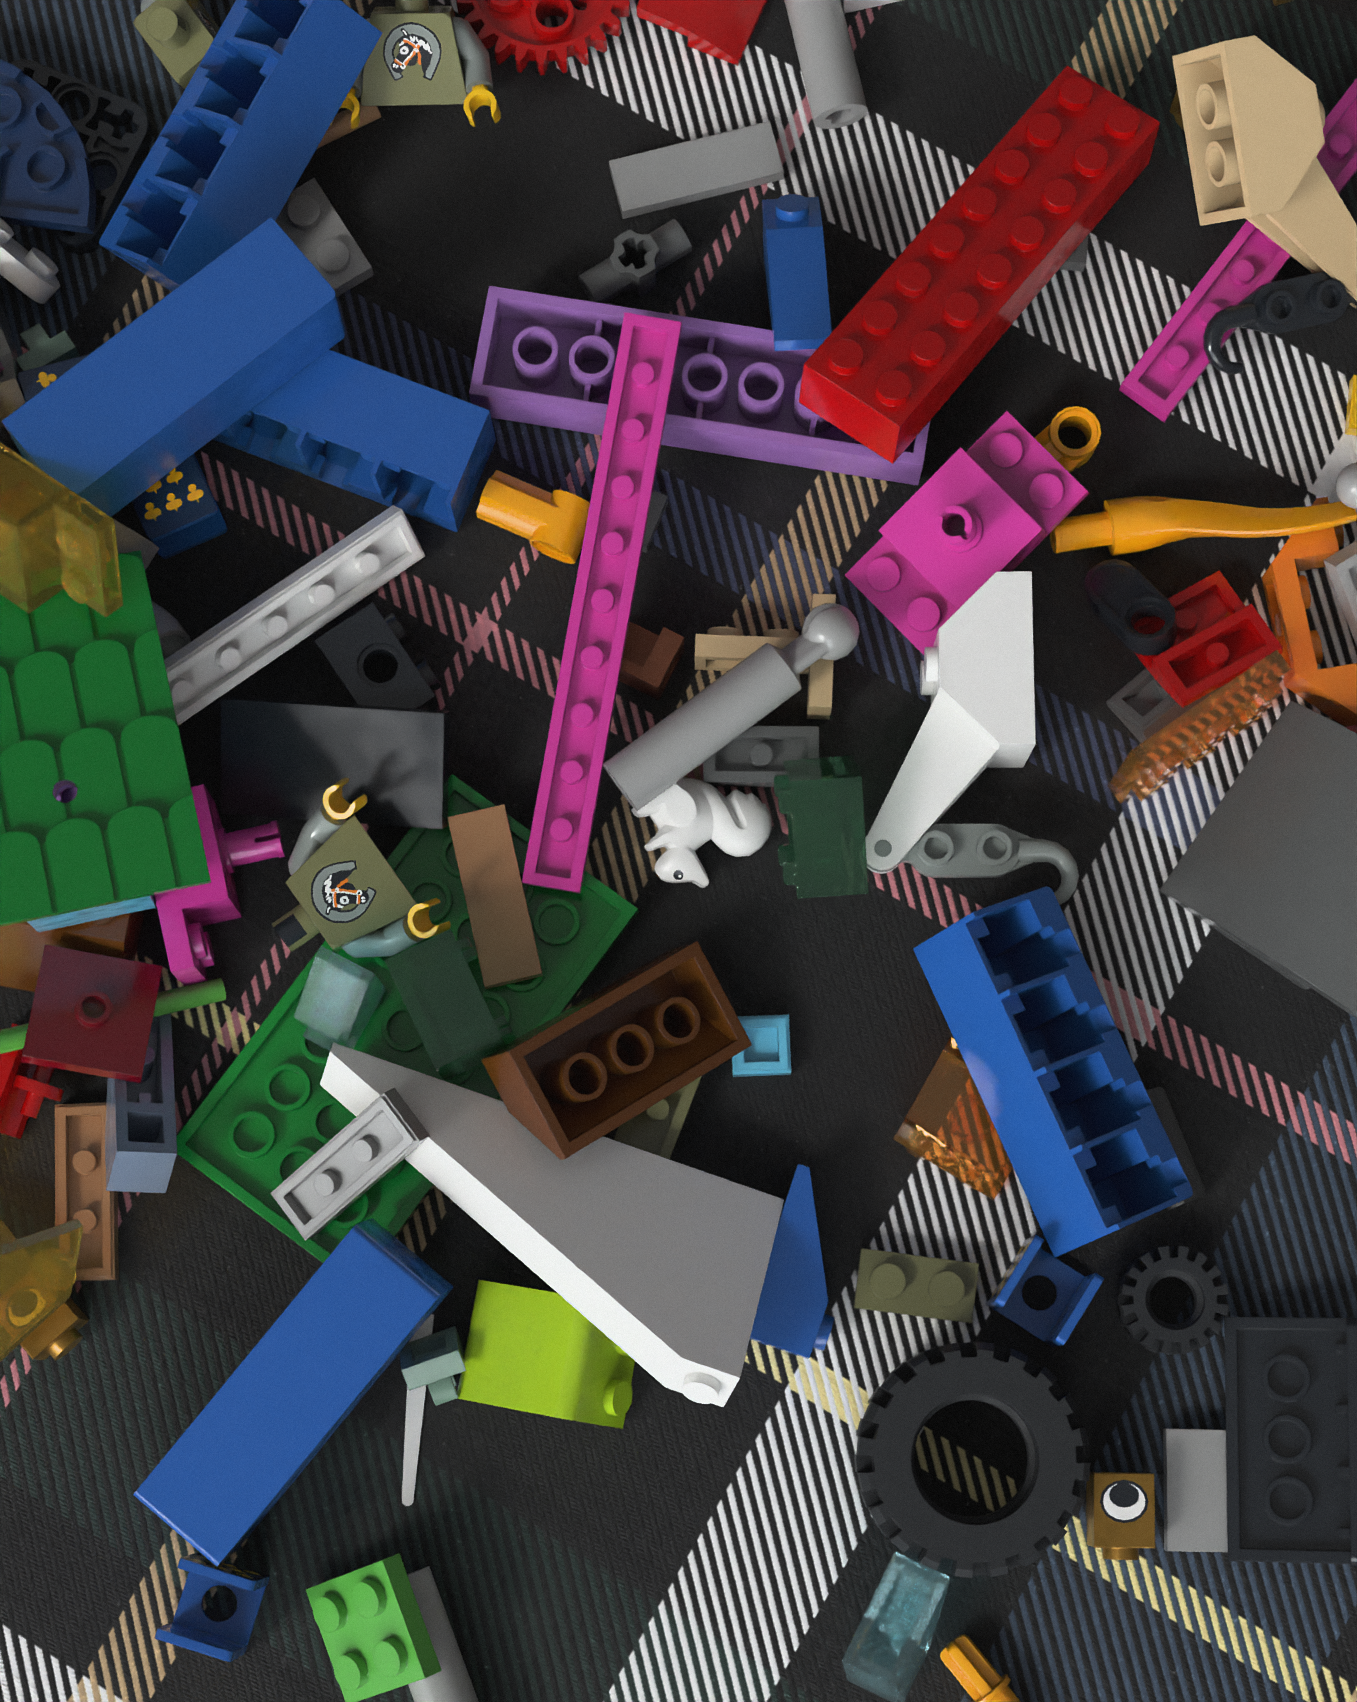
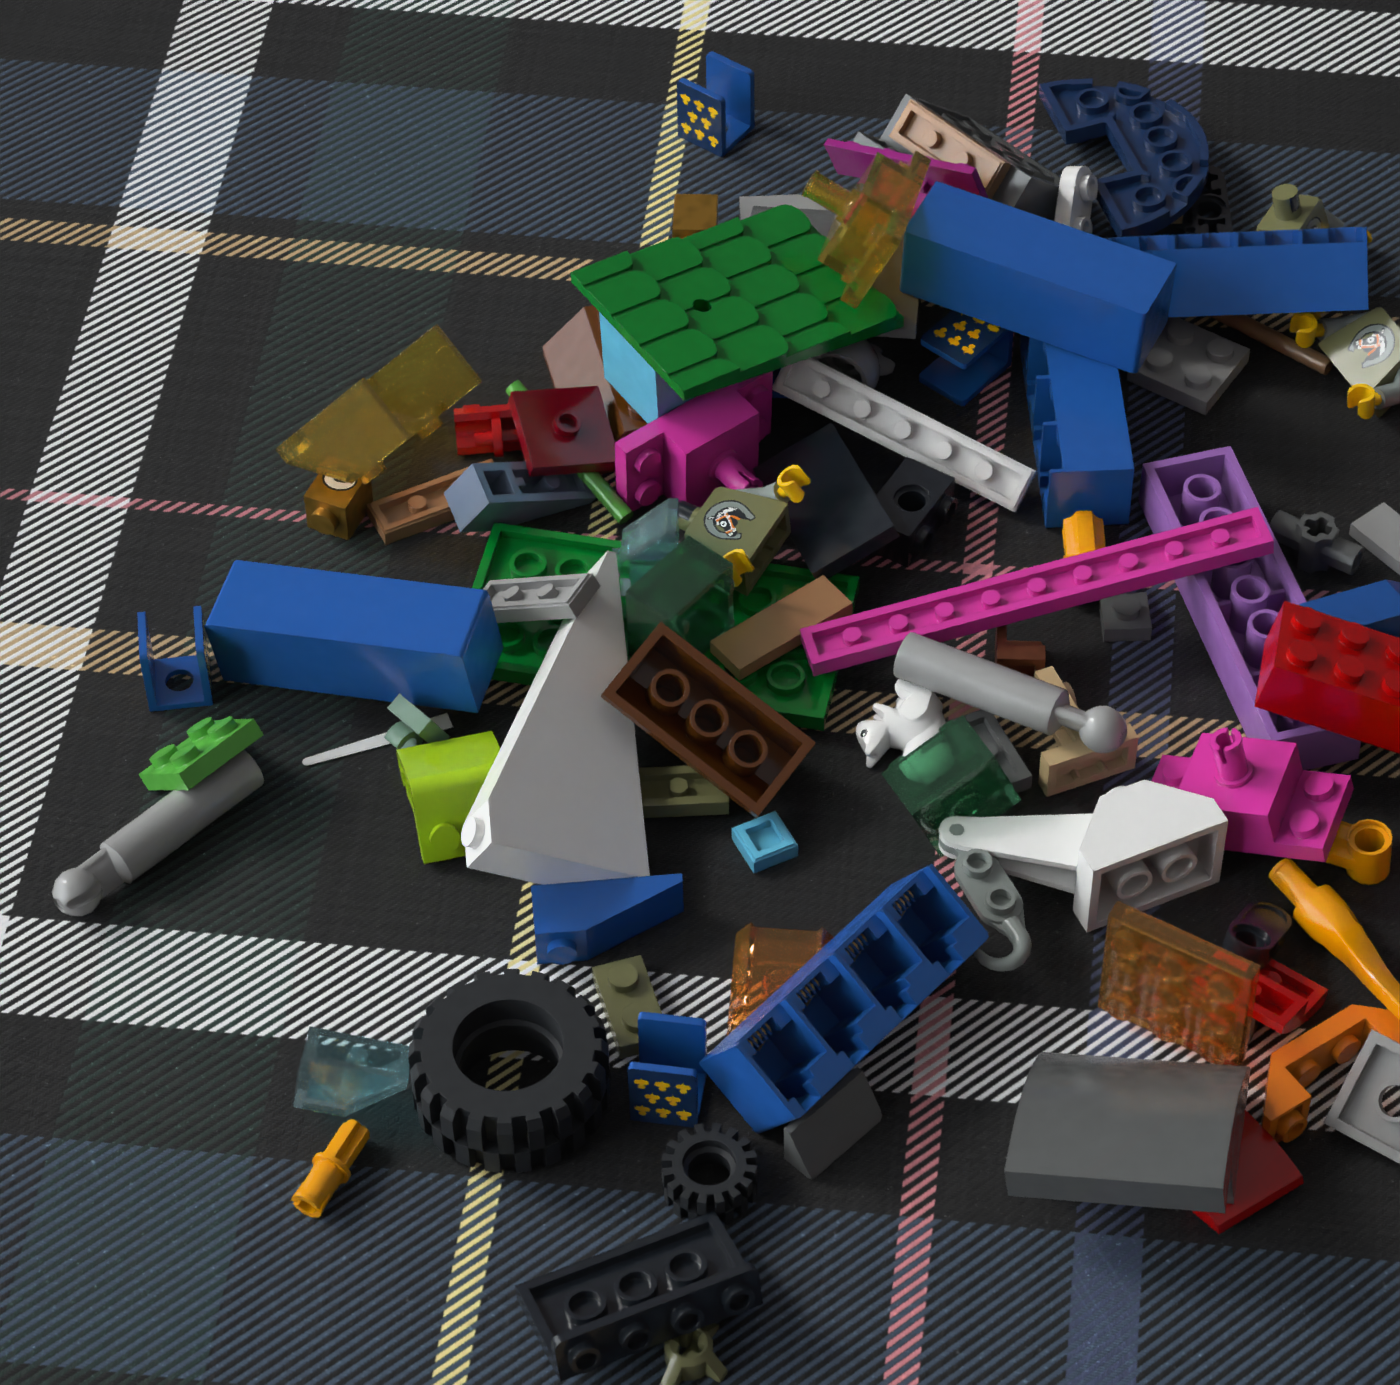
camera: 65 degrees right, 30 degrees down
(1120, 1513) = (518, 1197): pearl gold brick -> none
(1195, 1490) = (560, 1246): light grey tile -> none

